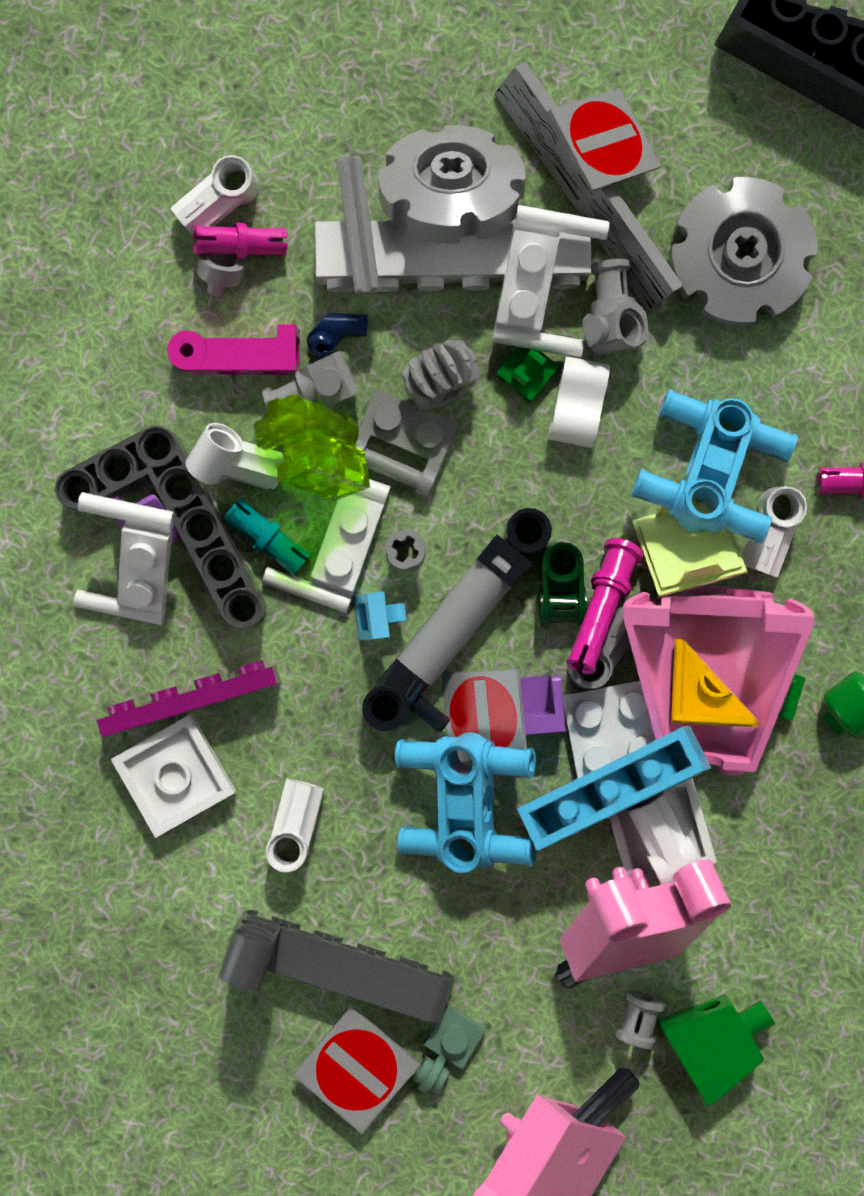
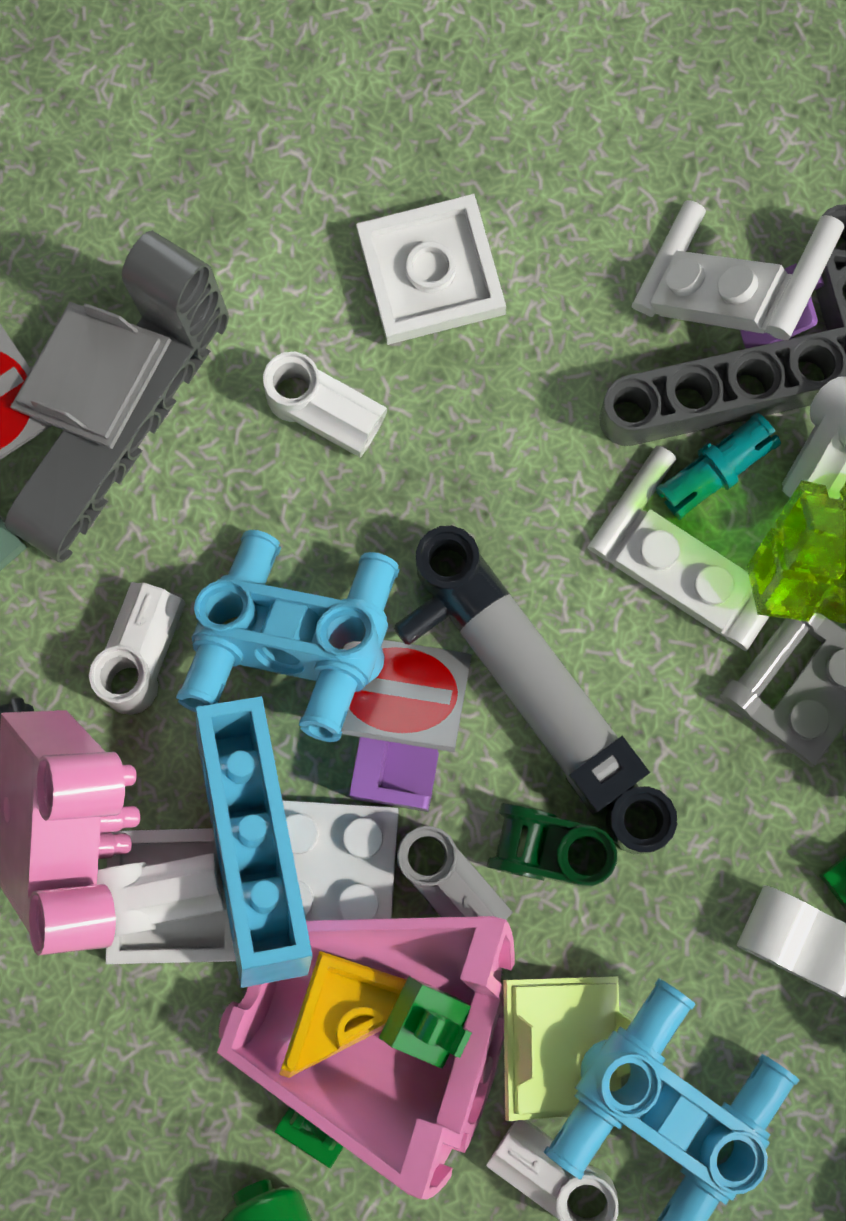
camera: 110 degrees right, 10 degrees down
(170, 702) = (527, 286): magenta plate -> none
(318, 994) = (91, 373): none -> light grey piece
(374, 615) = (576, 581): medium azure tile -> none
(401, 537) = (651, 626): light grey bush -> none
(494, 904) = (138, 642): none -> white piece
(609, 587) = (534, 914): dark pink pin -> none
(699, 639) = (427, 1023): none -> green tile

